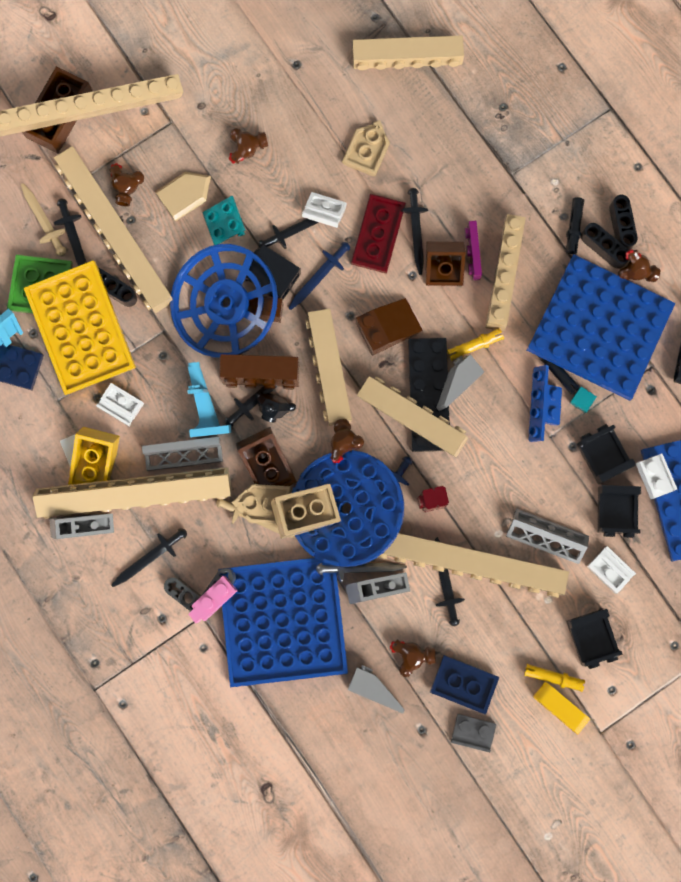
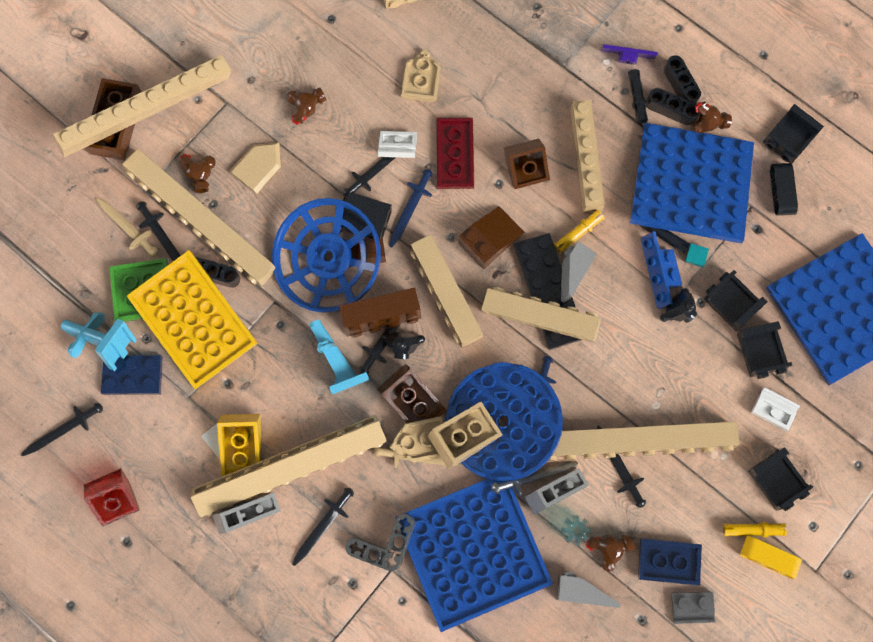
camera: 15 degrees left, 5 degrees down
(120, 404) = (251, 383): white plate -> none
(181, 446) = (323, 407): light grey fence -> none
(212, 600) = (398, 549): bright pink hinge -> none
(224, 221) = (304, 180): teal hinge -> none
(344, 440) = (482, 355): reddish brown animal -> none
(390, 629) = (570, 532): none -> clear light blue piece
(415, 212) = (484, 124): black sword -> none
(433, 499) = (585, 388): dark red brick -> none
(473, 251) = (550, 143): magenta plate -> none
(550, 533) = (709, 388): light grey fence -> none
(551, 448) = (682, 308): none -> black rock
(578, 181) = (628, 54): none -> dark purple piece
(656, 476) = (790, 307): white plate -> none

